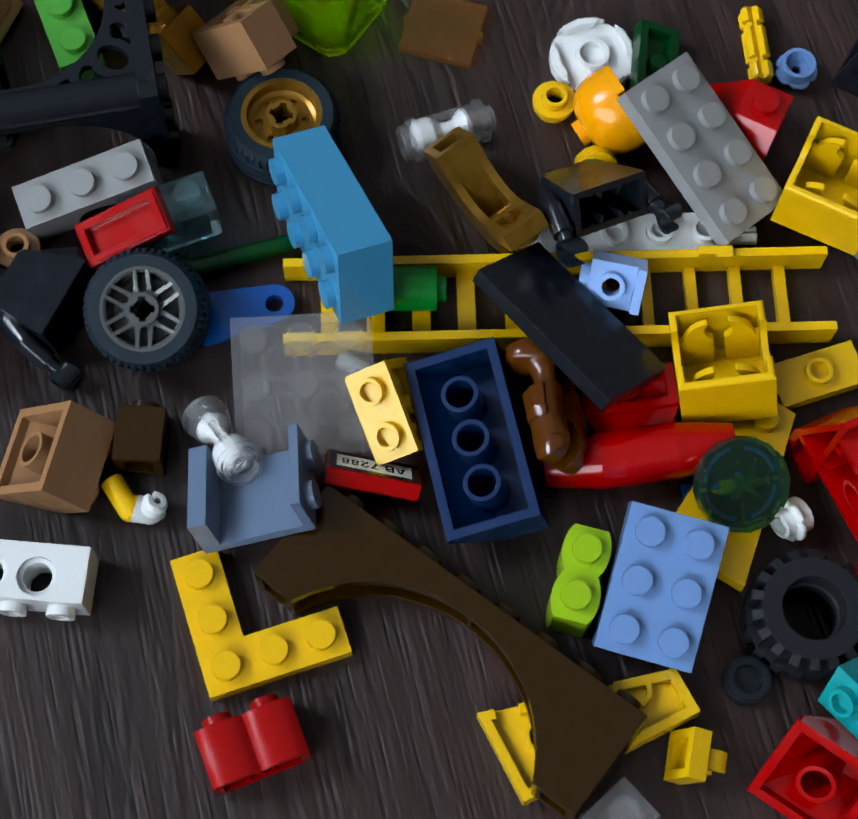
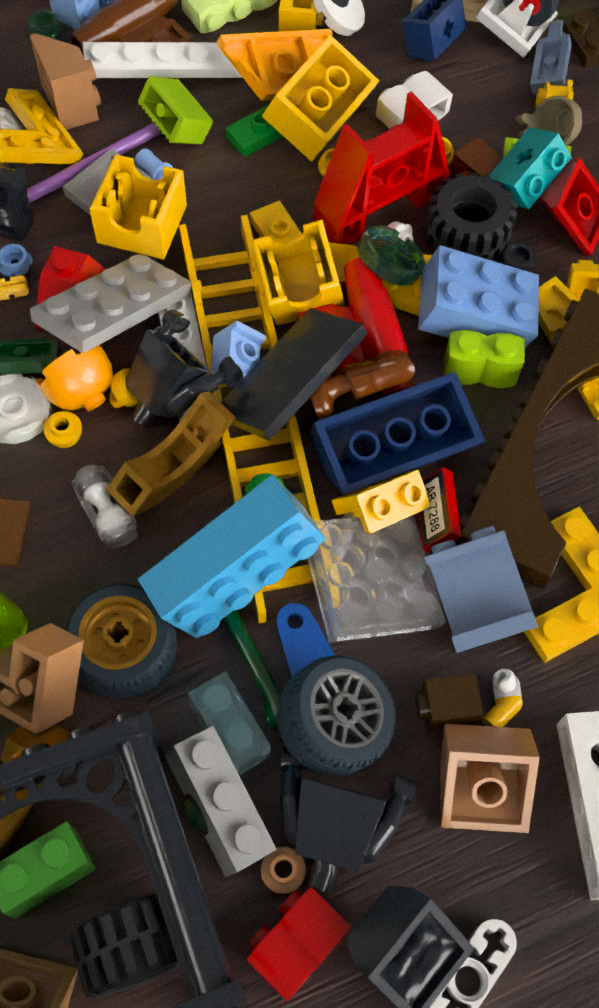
camera: 100 degrees left, 5 degrees down
(125, 227) = (265, 746): red tile -> none
(233, 455) = (451, 617): clear piece -> none

